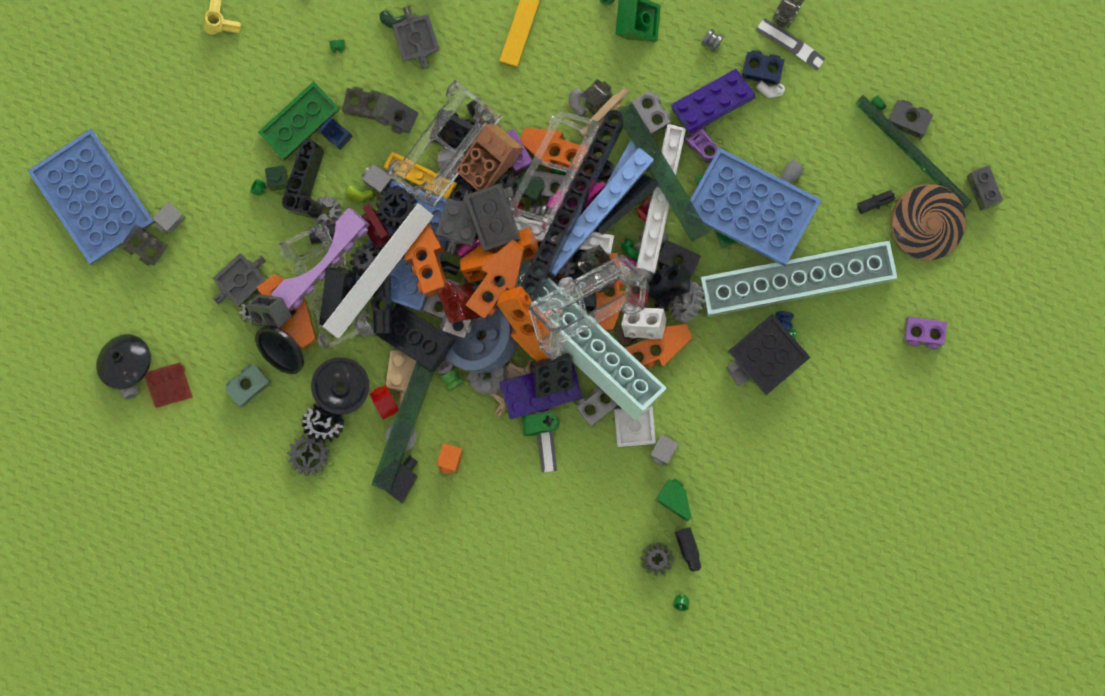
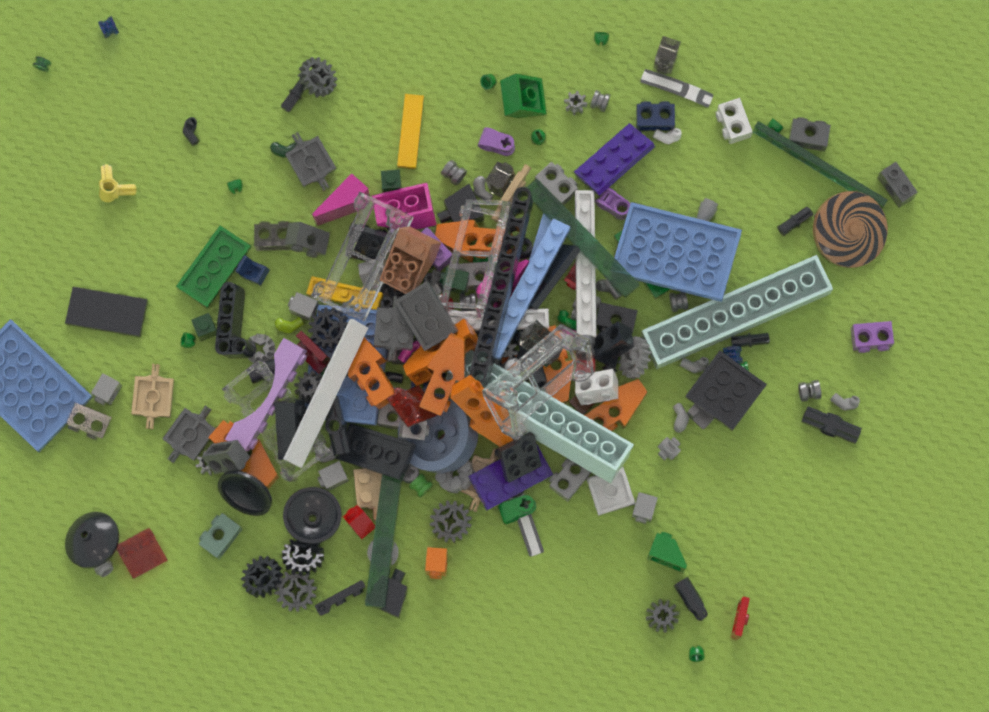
camera: 10 degrees left, 5 degrees down
(185, 142) = (106, 311): none -> black tile
(212, 235) = (152, 396): none -> tan plate
(279, 434) = (262, 577): none -> black gear
(348, 472) = (340, 598): none -> black hinge
(368, 352) = (332, 476): none -> light grey brick
(435, 84) = (340, 202): none -> dark pink slope
(481, 425) = (442, 520): none -> dark grey gear
(489, 76) = (390, 180): none -> dark green brick
(504, 98) = (412, 200): none -> dark pink slope
(546, 110) = (454, 203): none -> black torso
(552, 79) = (453, 172): none -> flat silver wheel
(599, 57) = (493, 142): none -> medium lavender piece
(639, 63) = (534, 138): none -> green hinge
(674, 224) = (605, 286): none -> flat silver arm
(683, 34) = (575, 97): none -> light grey gear
(701, 398) = (669, 448): none -> light grey gear
(720, 370) = (681, 419): none -> light grey arm
(732, 579) = (741, 618): none -> red plate
(743, 255) = (678, 301): none -> flat silver wheel
(745, 323) = (695, 367): none -> light grey arm
(804, 309) = (750, 340): none -> black axle
(844, 89) = (738, 120): none -> white brick
(851, 372) = (809, 390): none -> flat silver wheel
(864, 410) = (831, 425): none -> black piece
(883, 392) = (845, 404): none -> light grey arm

